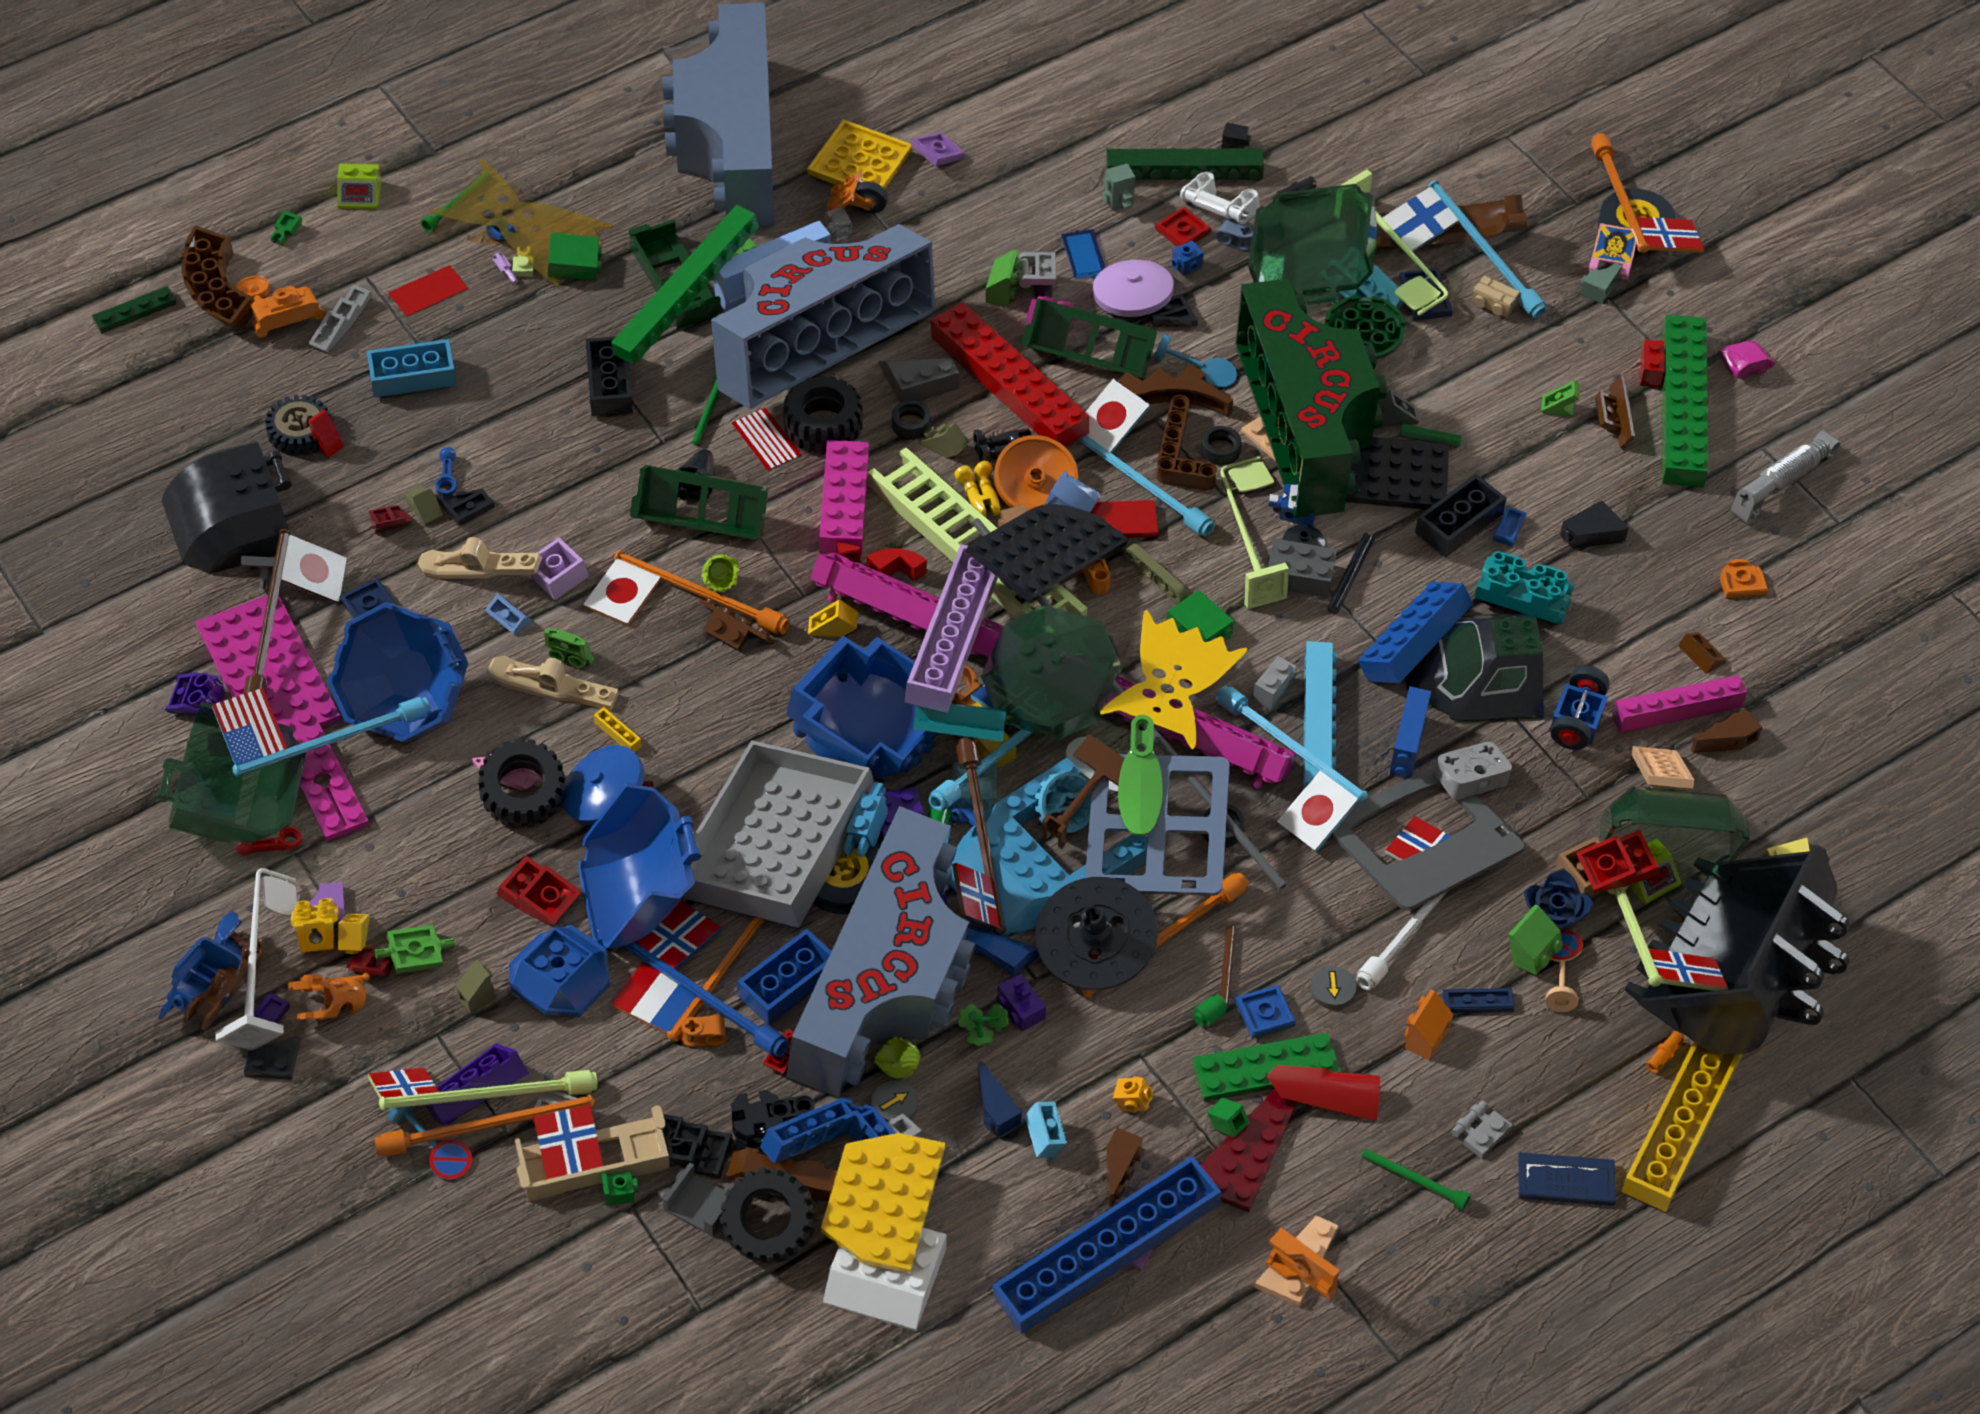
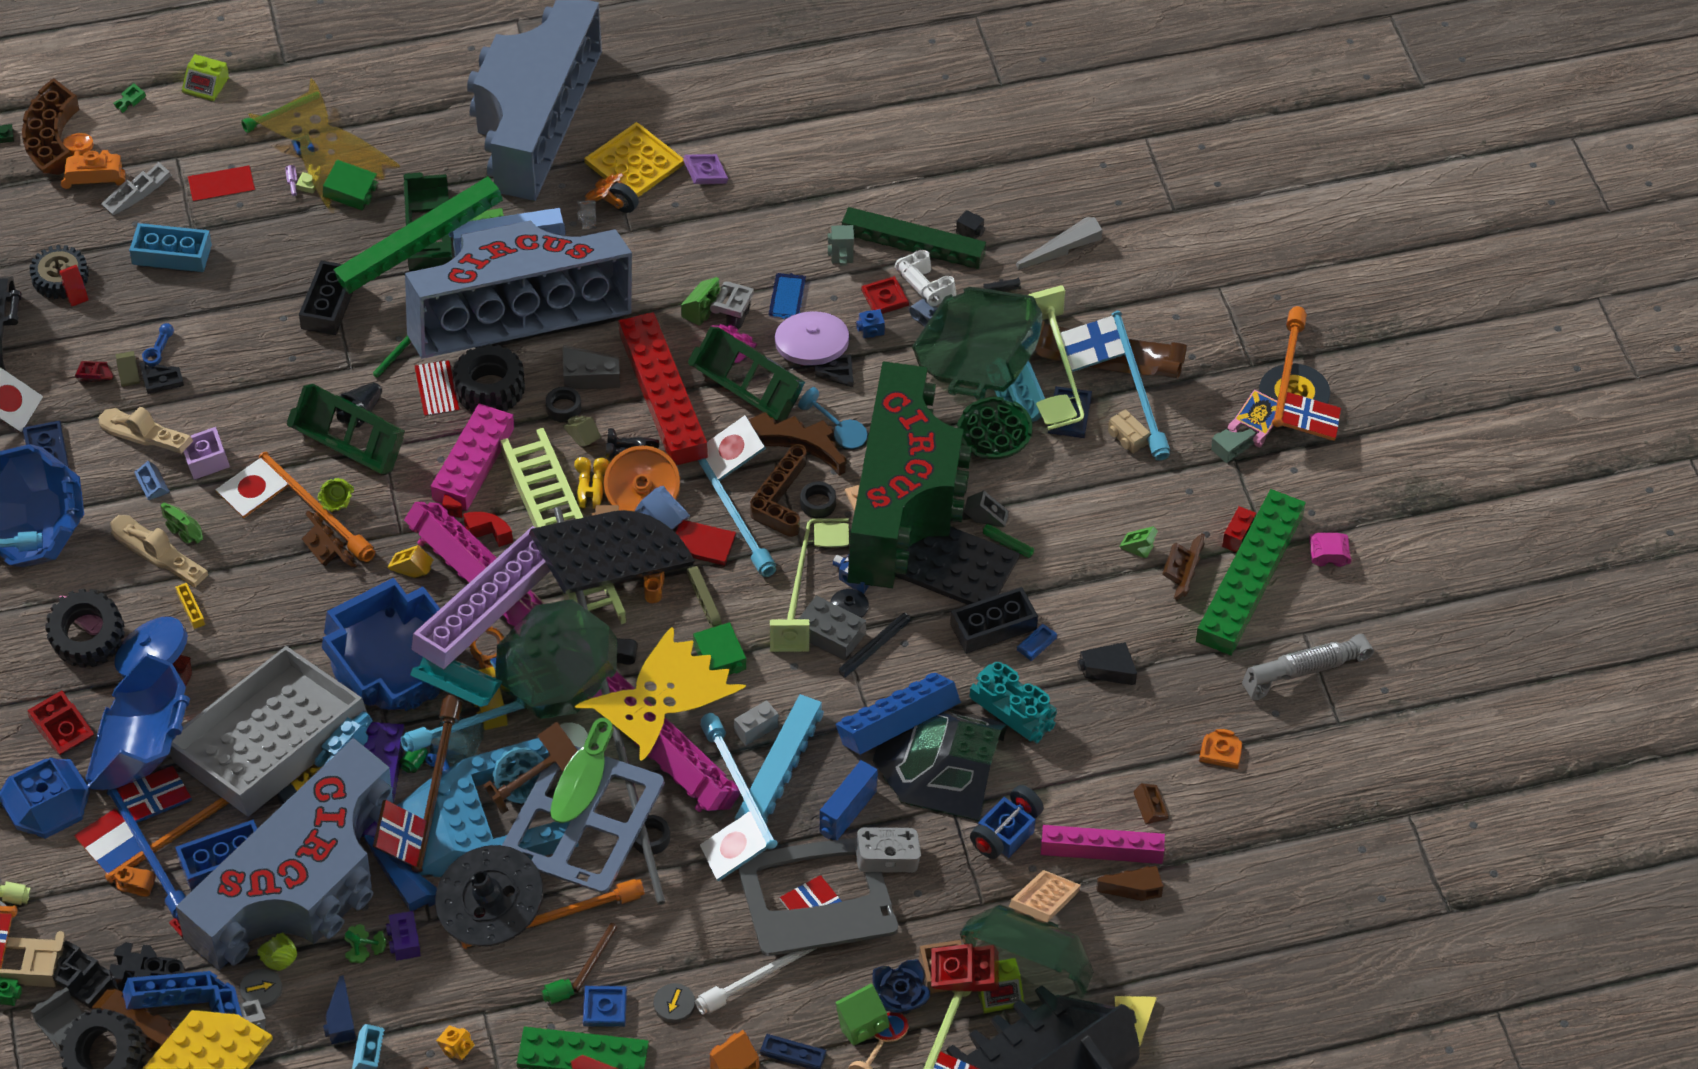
camera: 20 degrees right, 0 degrees up
(1346, 119) = (1081, 233): none -> light grey wedge

